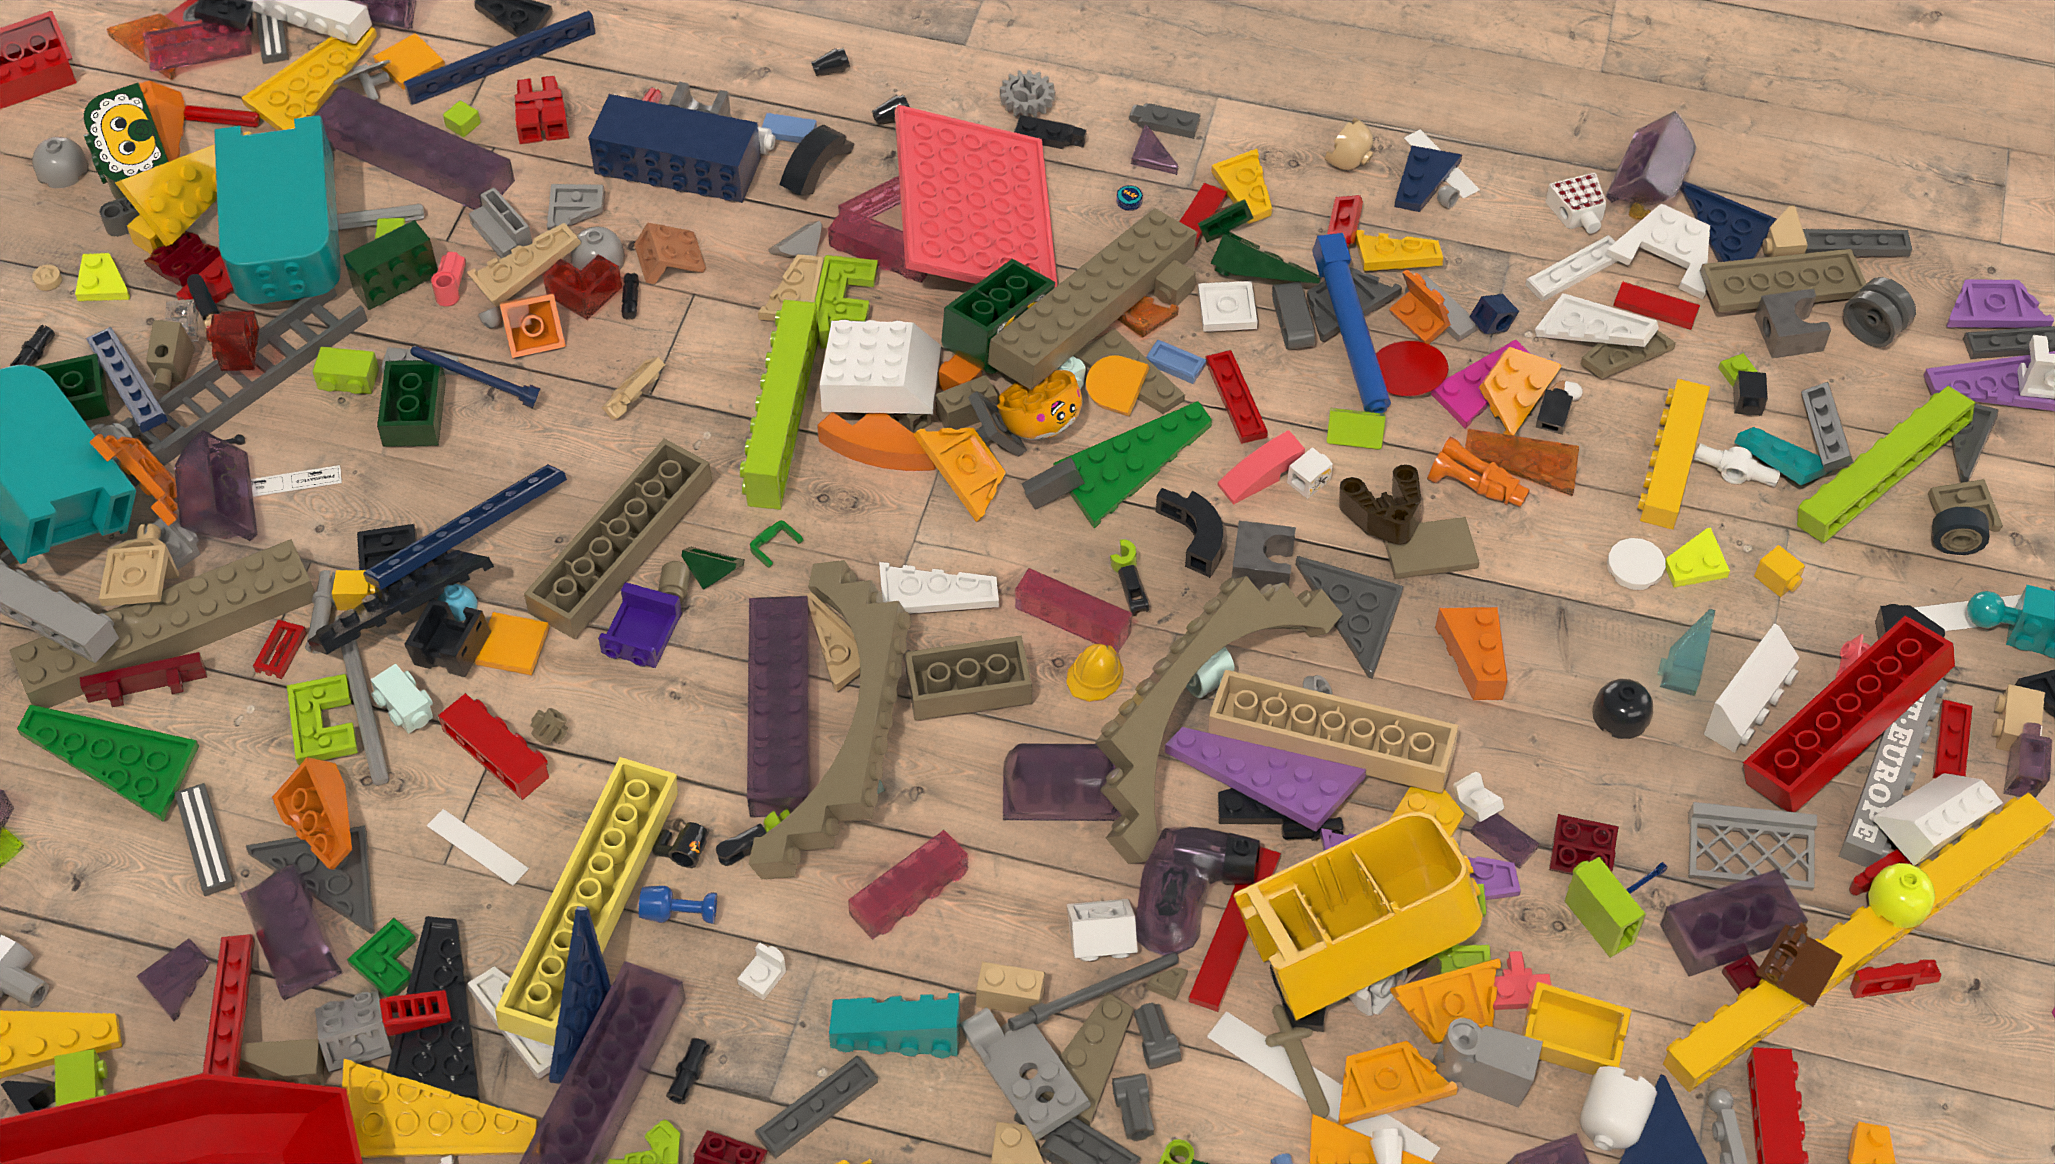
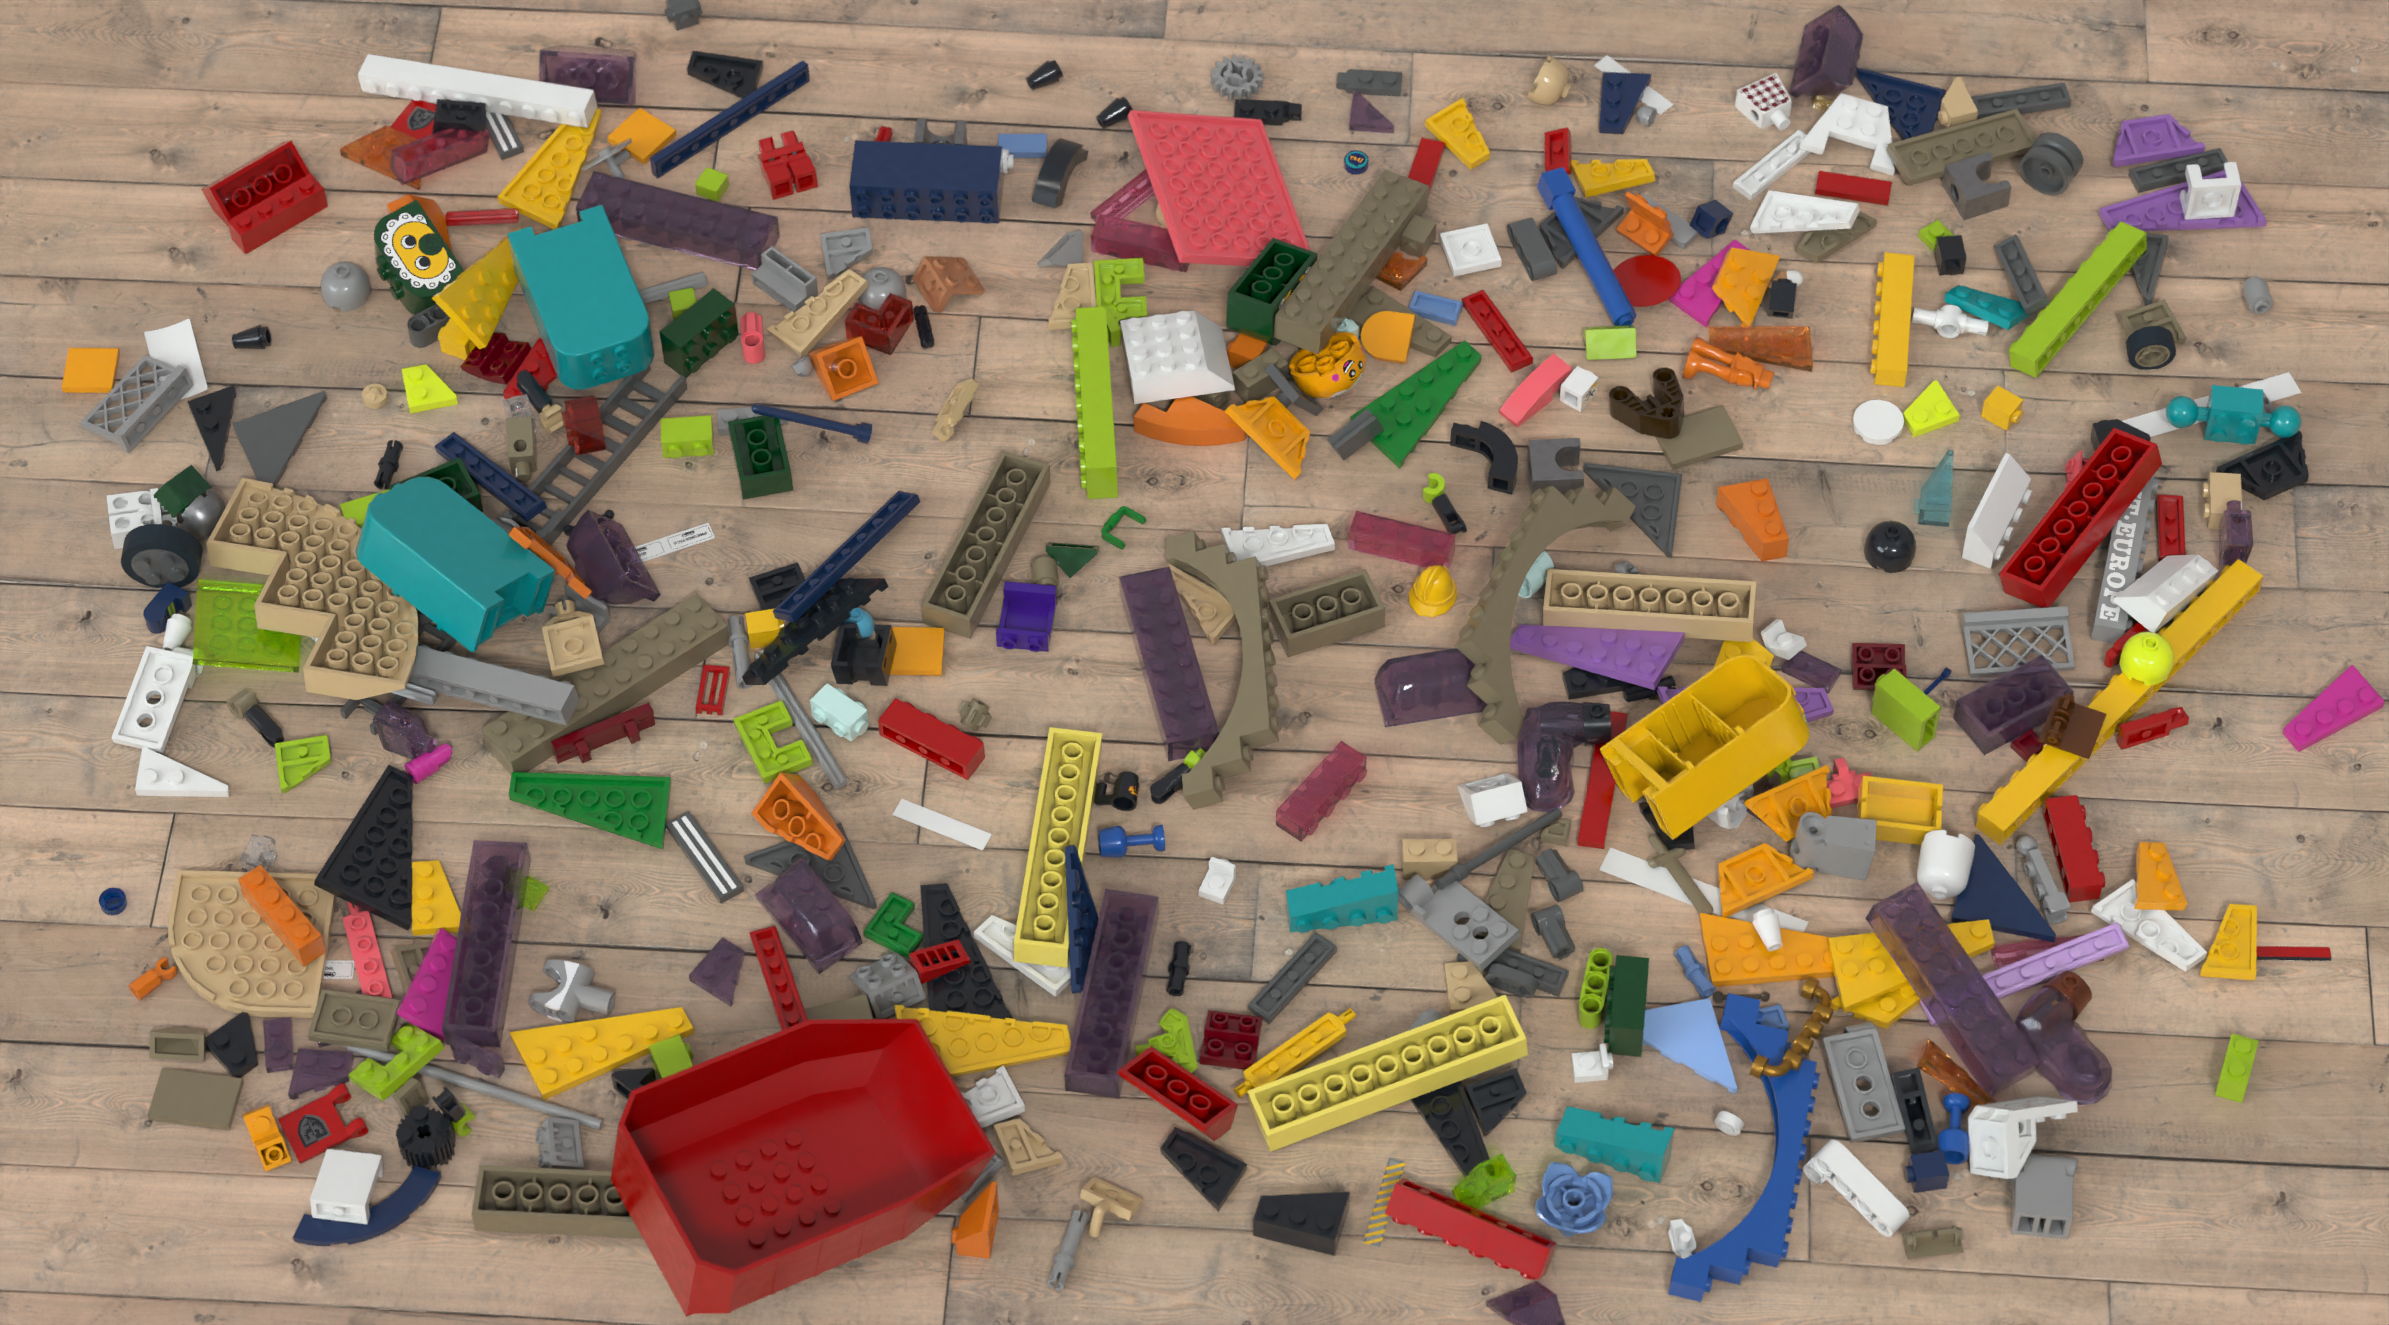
camera: 10 degrees left, 0 degrees up
(1225, 220) = (1450, 170): dark green slope -> none
(1244, 258) = (1476, 204): dark green wedge -> none

